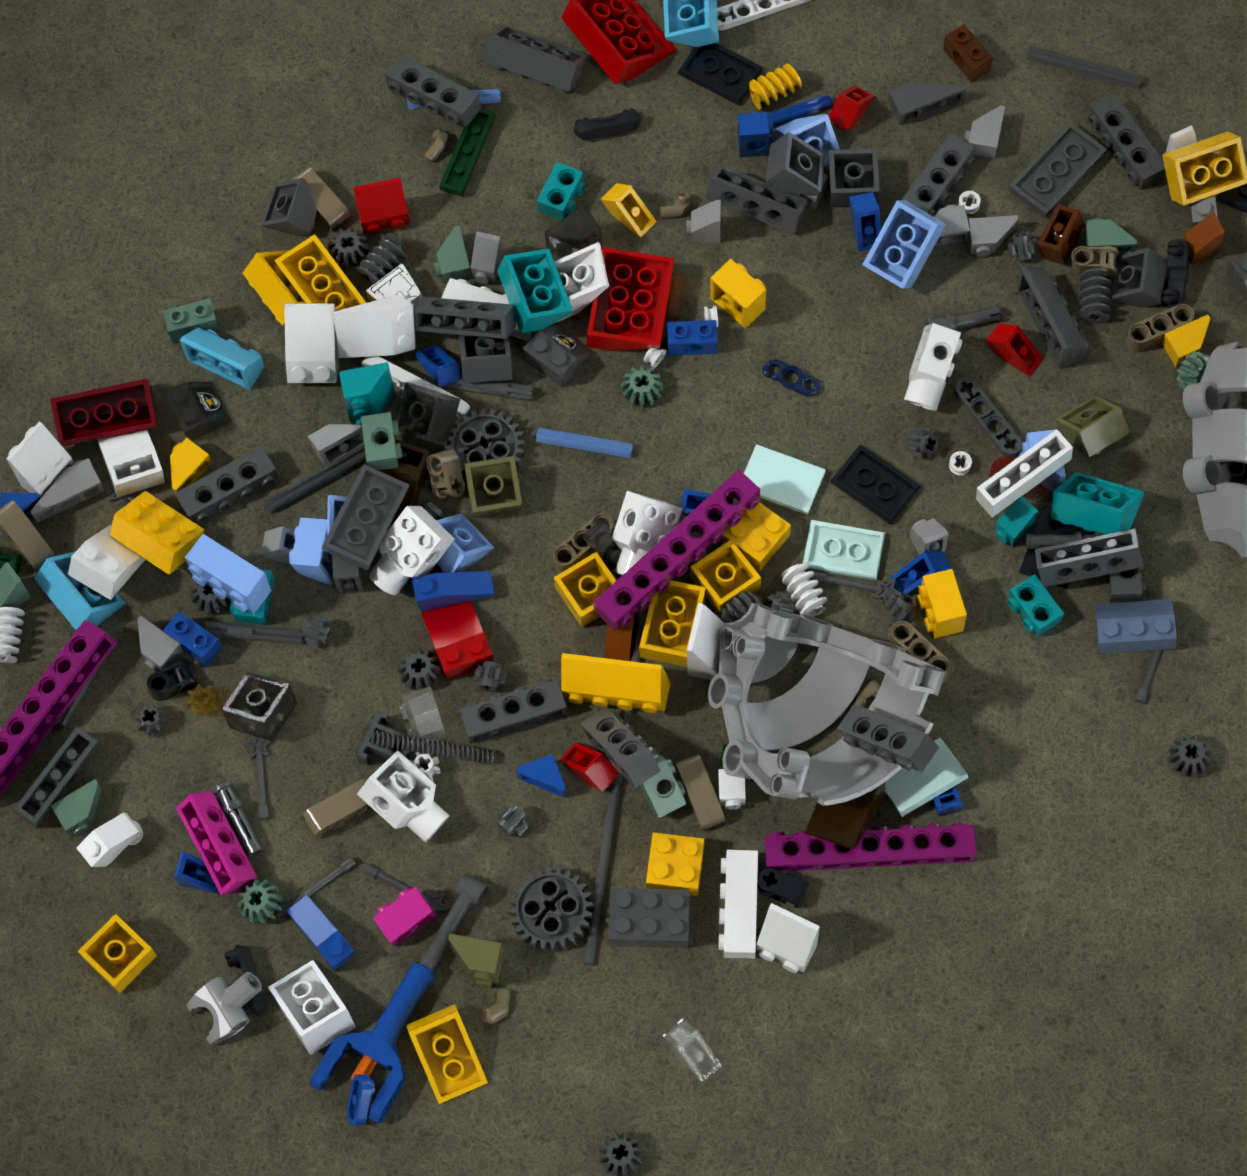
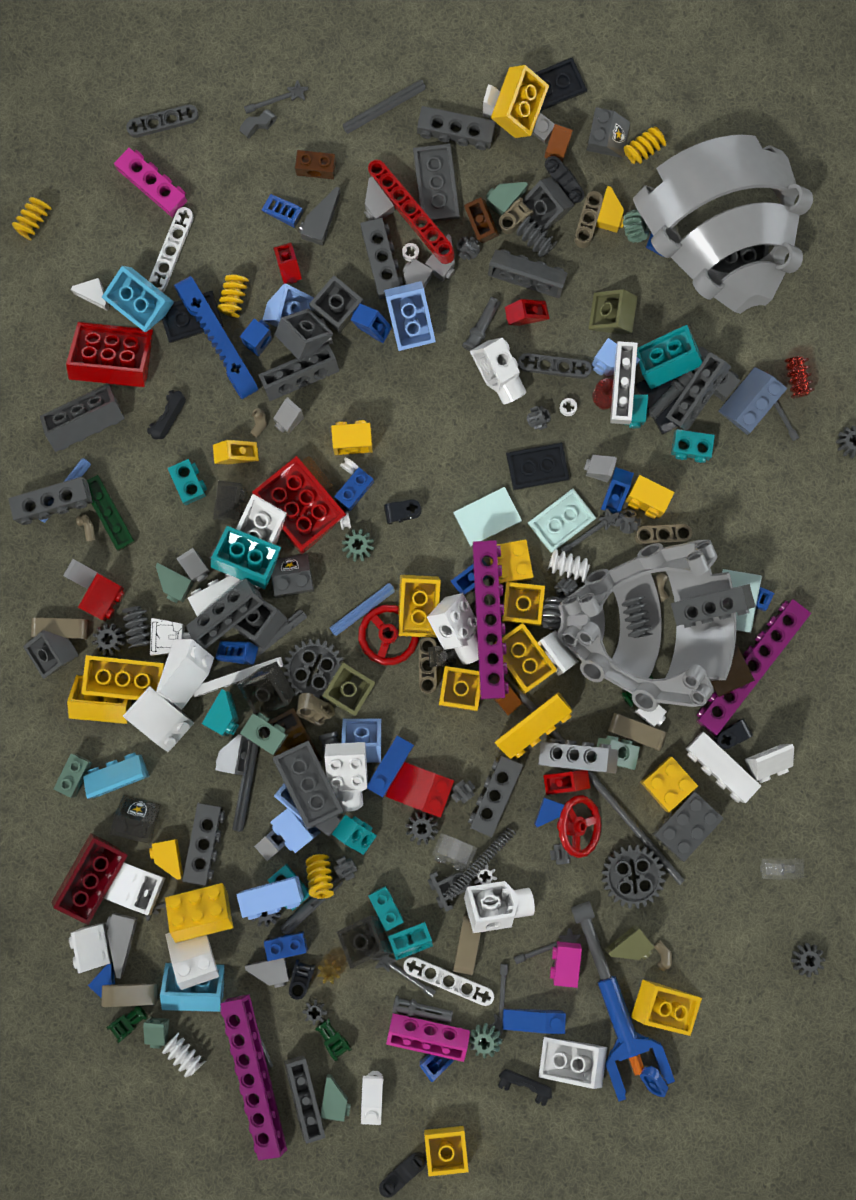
camera: 55 degrees left, 15 degrees up
(56, 935) = (402, 1174): none -> black piece
(138, 761) = (333, 1040): none -> dark green connector
(225, 1004) = (533, 1112): light grey connector -> none
(285, 810) = (455, 988): none -> white beam
(287, 611) = (318, 876): none -> yellow piece
(297, 747) = (410, 941): none -> teal brick
(310, 699) = (386, 908): none -> teal brick
(356, 607) = (354, 833): none -> teal brick
(386, 164) = (80, 574): none -> light grey slope
(552, 808) = (575, 826): none -> red piece
(581, 485) = (383, 628): none -> red piece
(638, 473) = (416, 601): none -> yellow slope
(702, 158) = (189, 294): none -> blue gear
(710, 395) = (398, 511): none -> black piece
(784, 369) = (422, 460): dark blue piece -> none
(800, 110) = (258, 299): blue axle -> none
(810, 689) = (636, 617): none -> dark grey piece
(902, 78) = (298, 211): none -> blue slope
(1005, 166) = (413, 219): none -> red beam
(1203, 647) = (799, 376): none -> clear red piece

